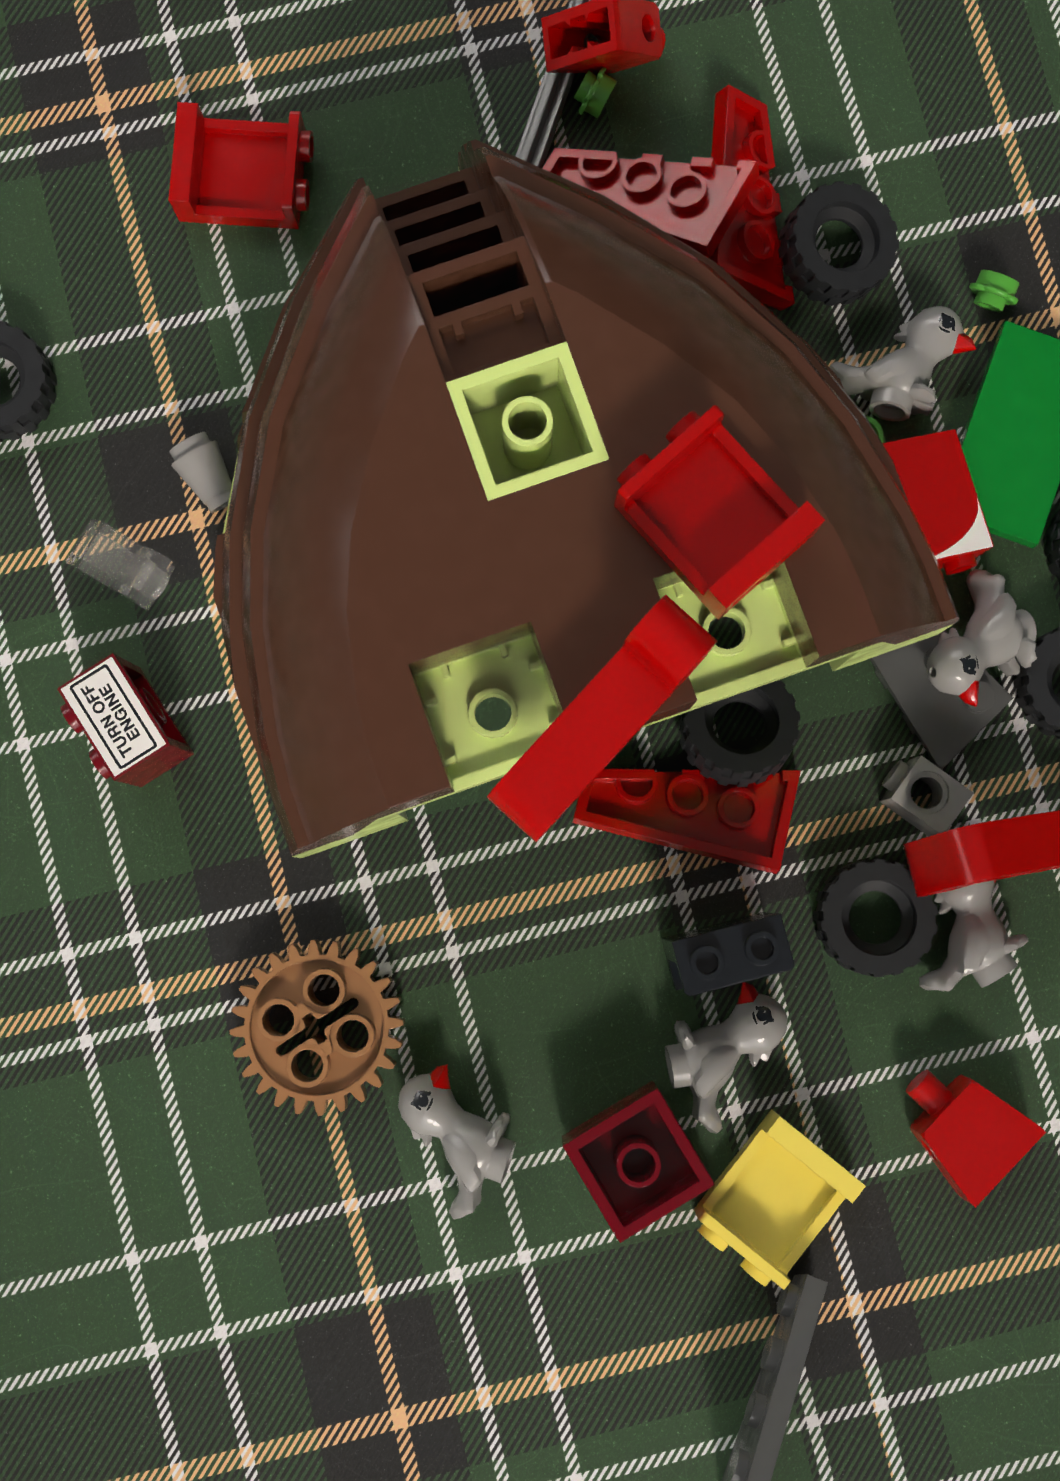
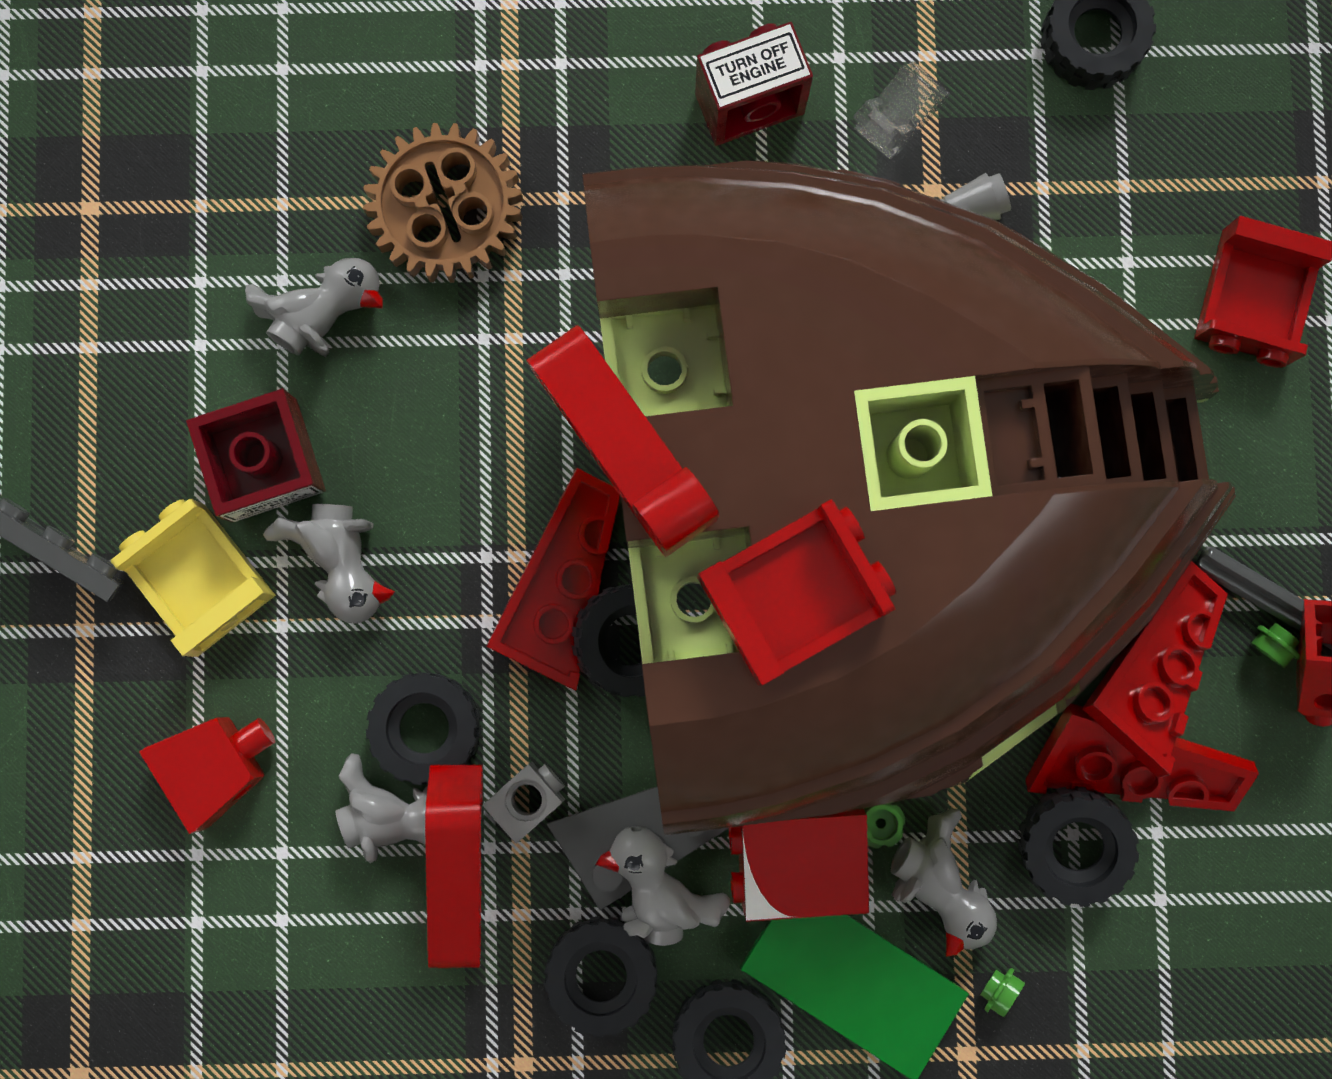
camera: 100 degrees right, 0 degrees up
(728, 953) = (419, 573): black panel -> none

